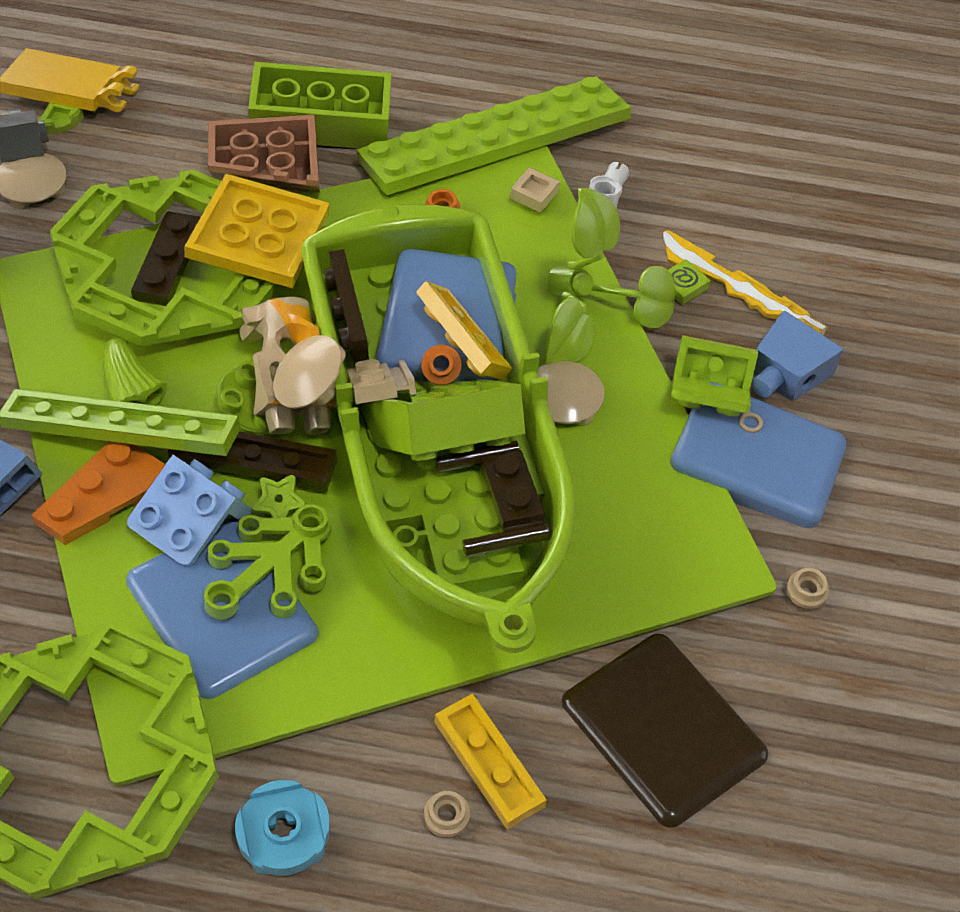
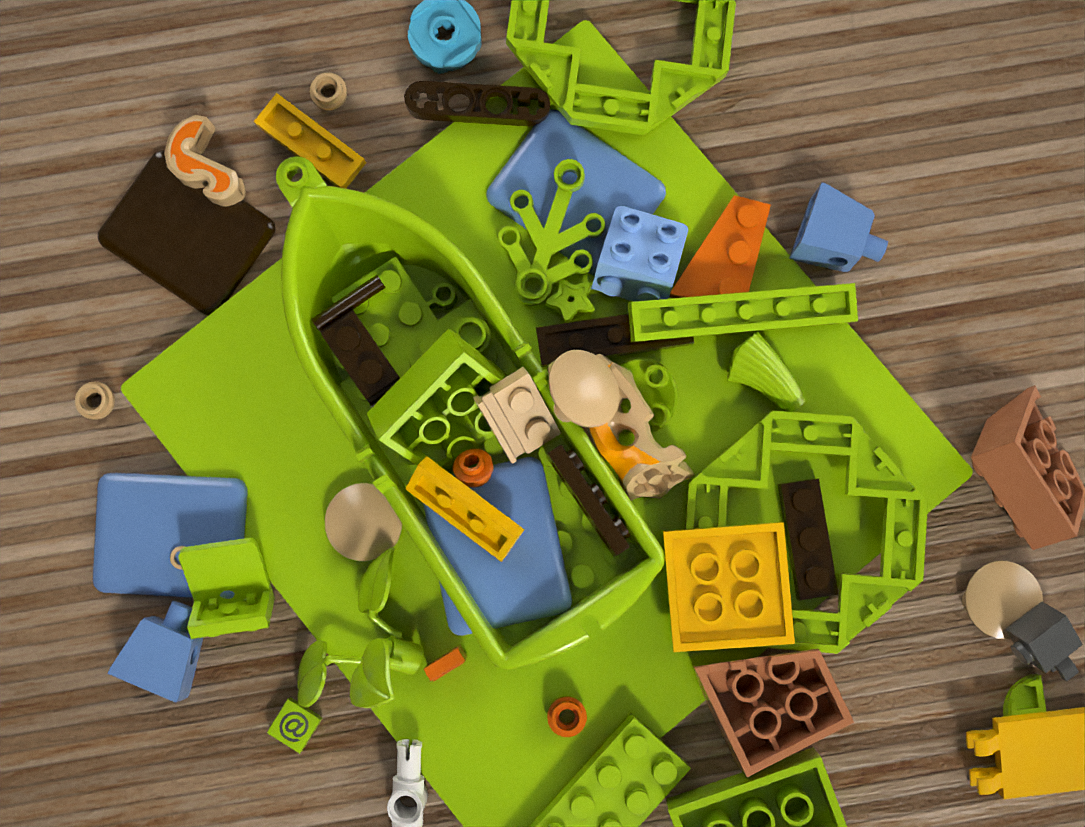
camera: 165 degrees right, 30 degrees up
(279, 729) = (478, 96): none -> dark brown beam
(394, 475) = (474, 331): none -> lime plate
(532, 265) = (445, 663): none -> orange tile
(534, 189) = (479, 778): tan plate -> none
(628, 770) = (185, 161): none -> tan animal
(737, 283) = (237, 745): yellow sword -> none

